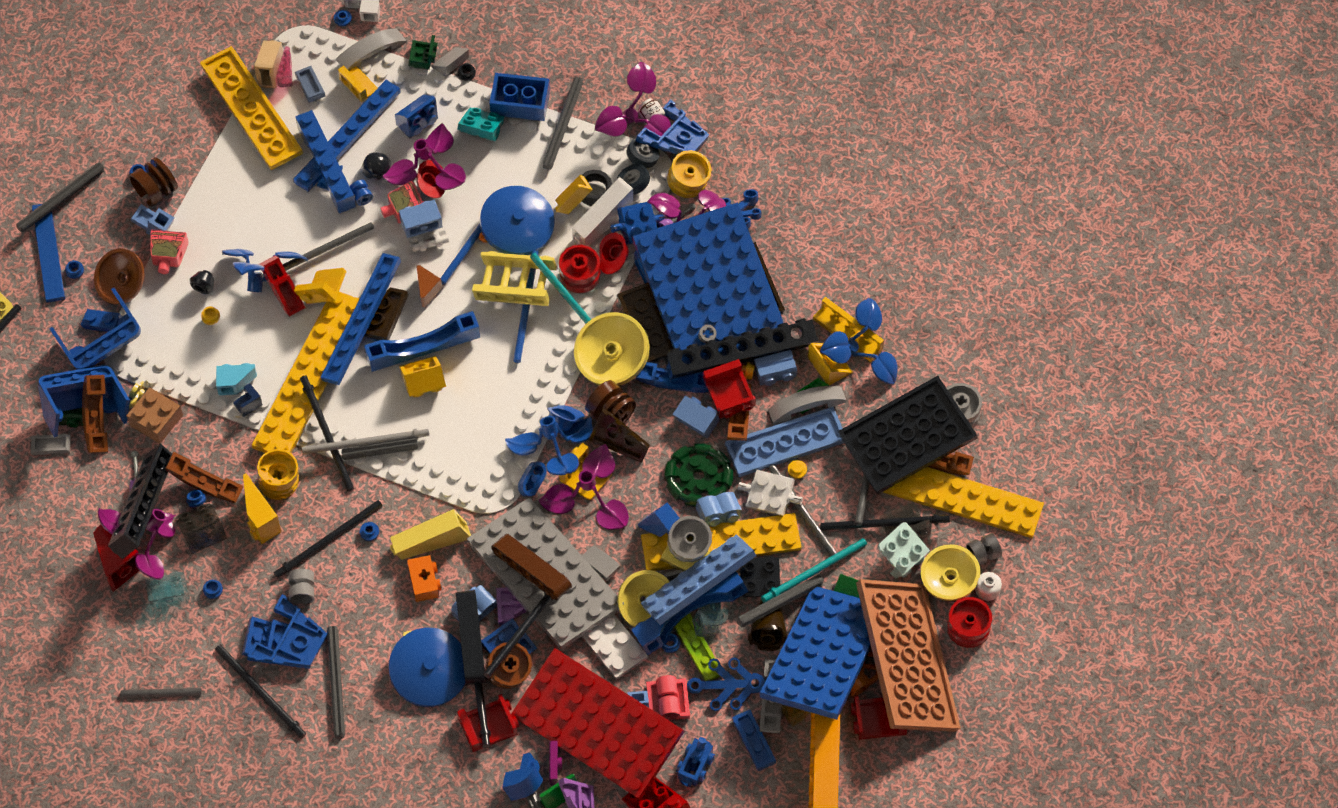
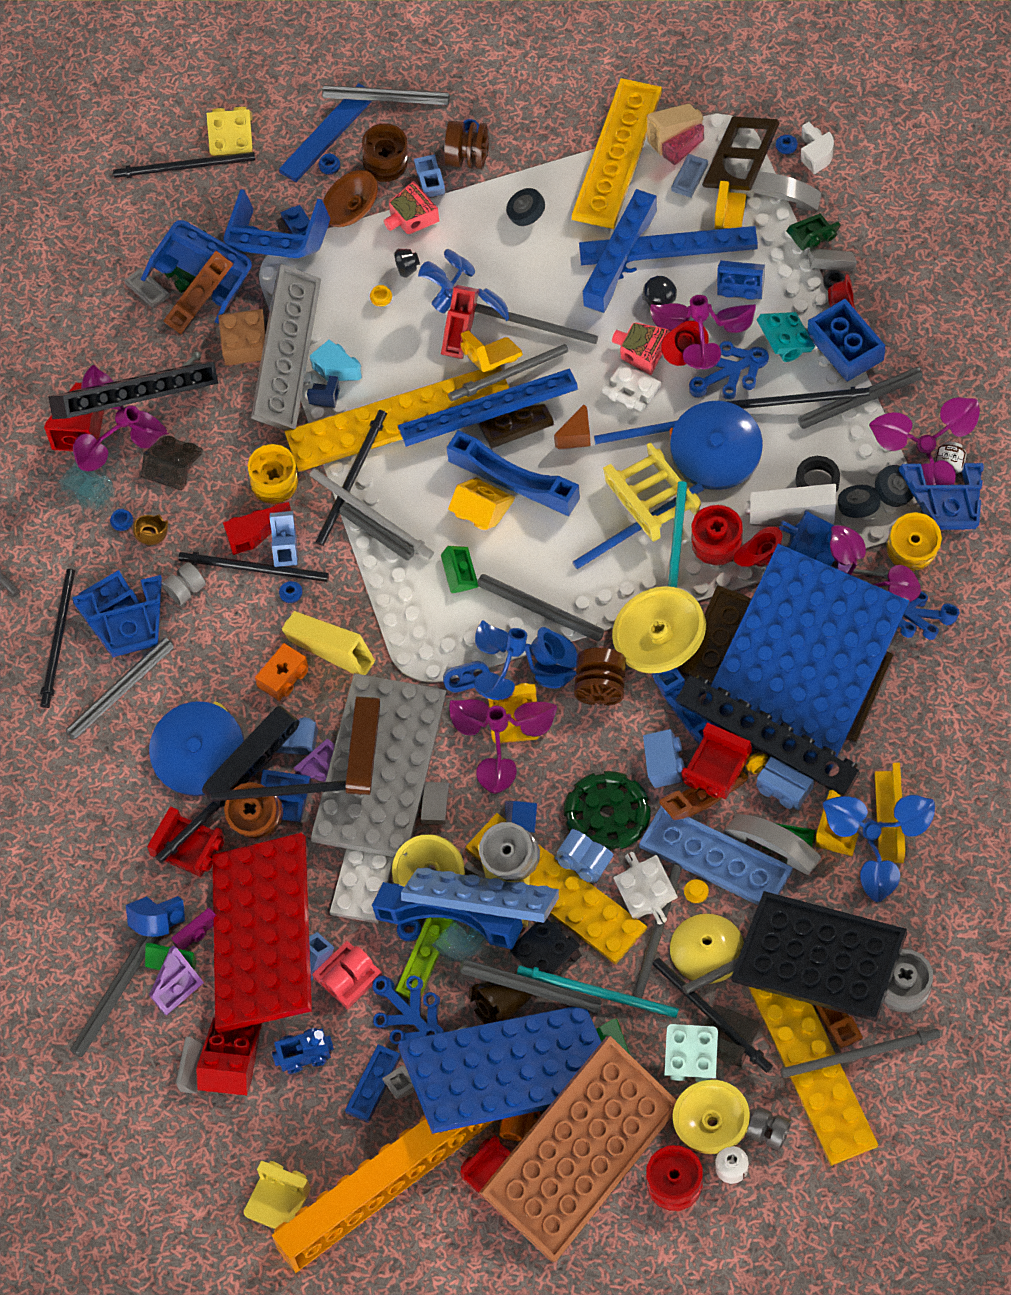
camera: 55 degrees right, 0 degrees up
(106, 229) = (384, 152): none -> reddish brown wheel
(136, 393) = (251, 304): light yellow plate -> none
(193, 395) = (286, 348): none -> light grey plate
(195, 498) = (195, 434): blue plate -> none
(202, 480) = (216, 422): dark orange slope -> none
(236, 186) = (525, 207): none -> black wheel
(243, 570) = (143, 526): none -> pearl gold hair
(262, 518) = (220, 488): yellow slope -> none
(301, 520) = (251, 529): none -> red slope
(325, 69) = (717, 168): none -> dark brown window
(330, 506) = (284, 539): none -> medium blue brick
(339, 315) = (471, 388): none -> dark grey bar
(362, 194) = (618, 302): blue wheel -> none
(420, 218) = (631, 367): medium blue brick -> none
(453, 425) = (459, 569): none -> green slope
(473, 171) = (732, 369): none -> blue plant
(483, 75) = (840, 291): none -> red piece
(527, 401) = (540, 607): none -> dark grey axle
(559, 123) = (803, 398): none -> black bar
(573, 195) = (786, 466): yellow panel -> none
(618, 437) = (572, 710): dark brown wing -> none
(707, 327) = (753, 686): light grey bush -> none
(832, 502) = (697, 959): none -> light yellow dish
(999, 429) = (919, 1038): none -> dark grey bar

